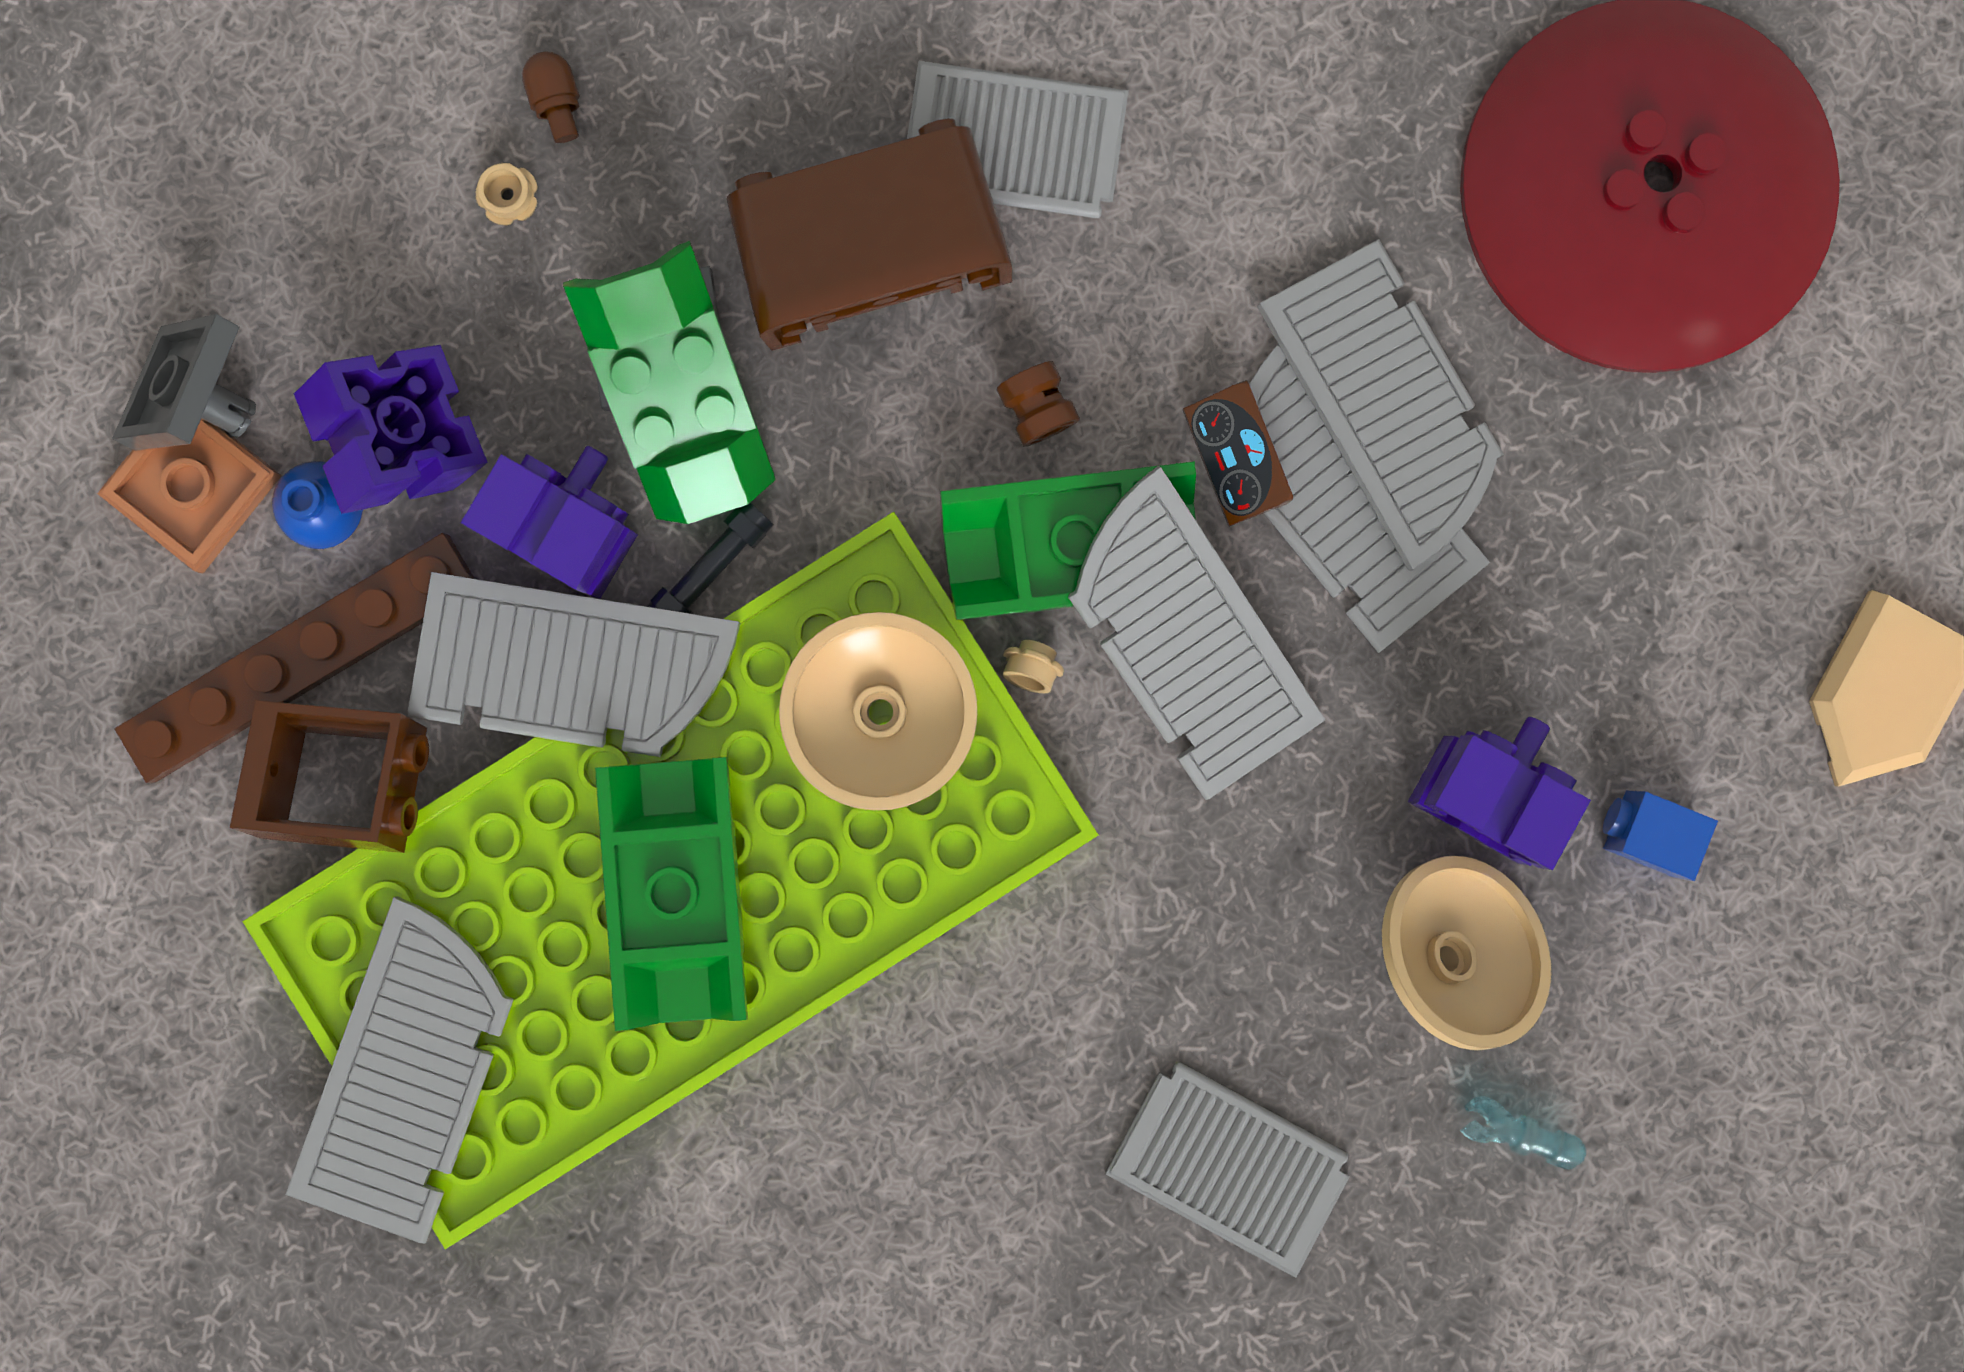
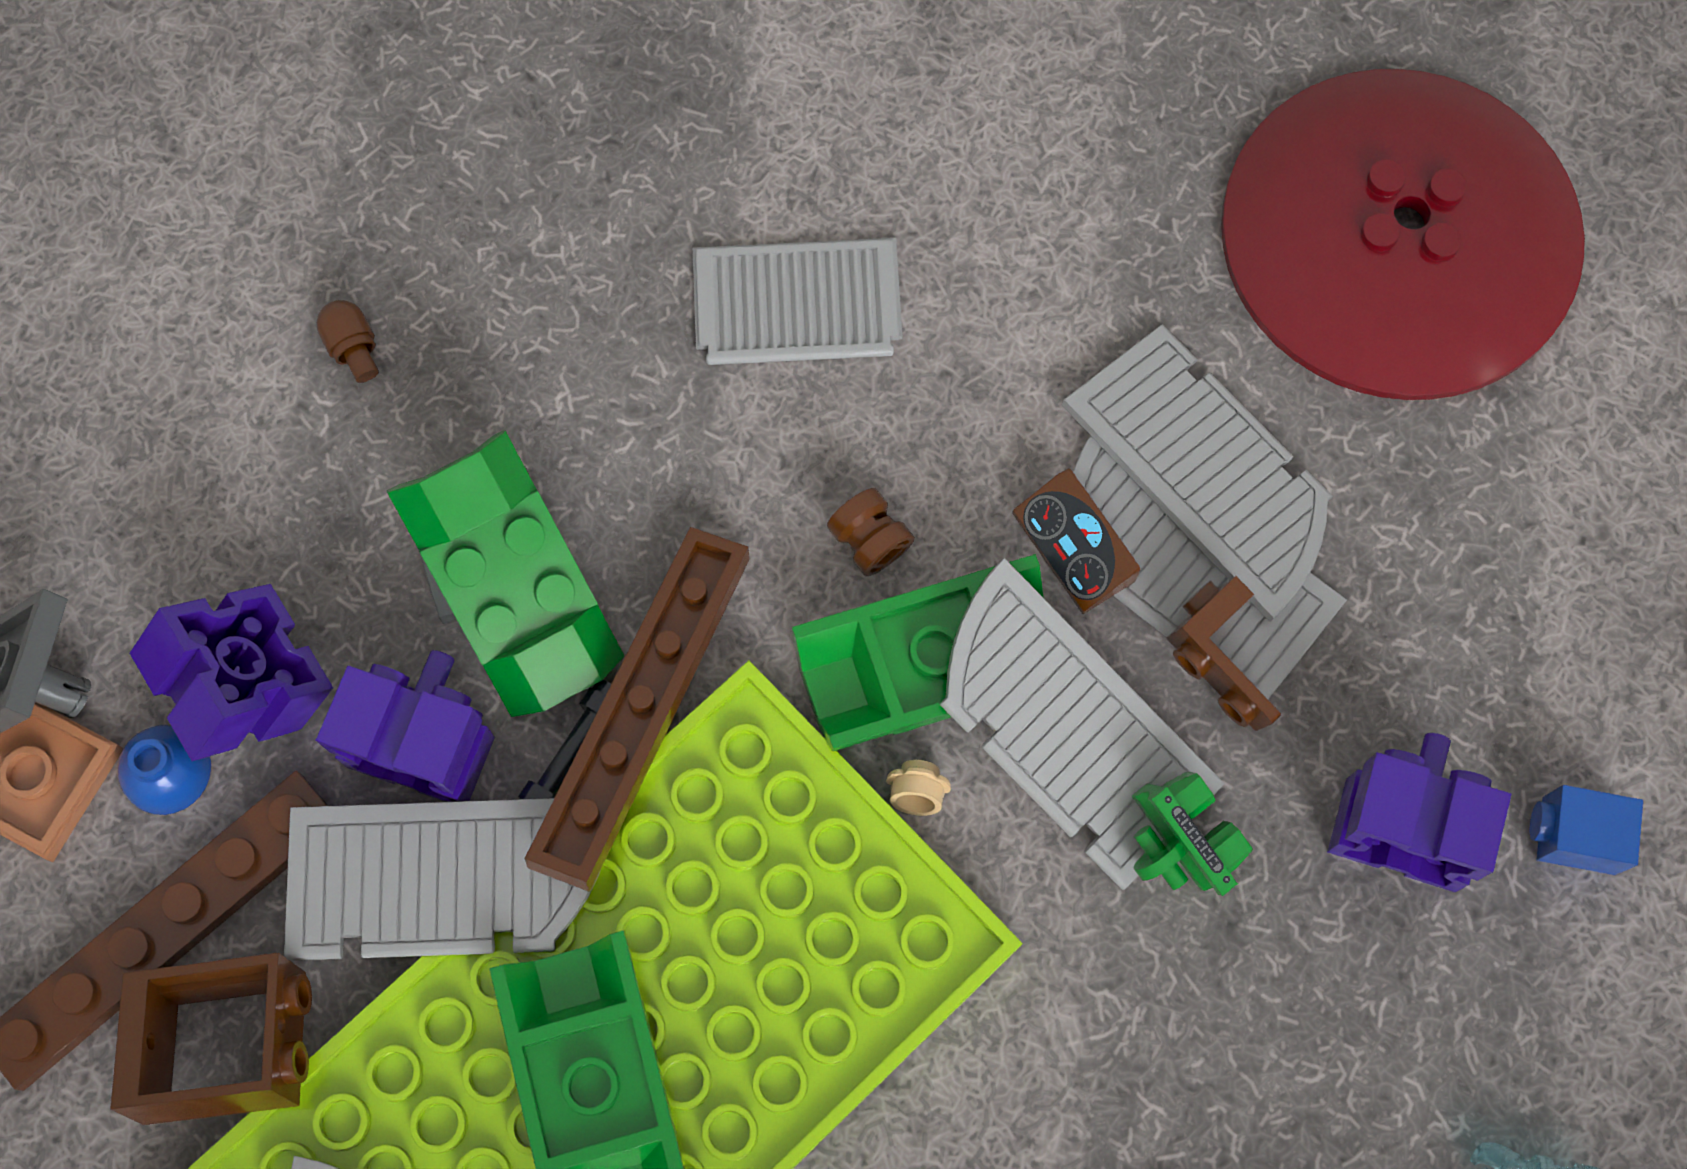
camera: 10 degrees left, 15 degrees down
(497, 180) = (307, 424): tan plate -> none
(779, 539) = (637, 710): none -> reddish brown plate
(829, 703) = (761, 805): tan dish -> none
(867, 232) = (674, 402): reddish brown windscreen -> none
(1291, 790) = (1205, 858): none -> green hips
(1349, 554) = (1203, 659): none -> reddish brown bracket
(1490, 949) = (1429, 987): tan dish -> none

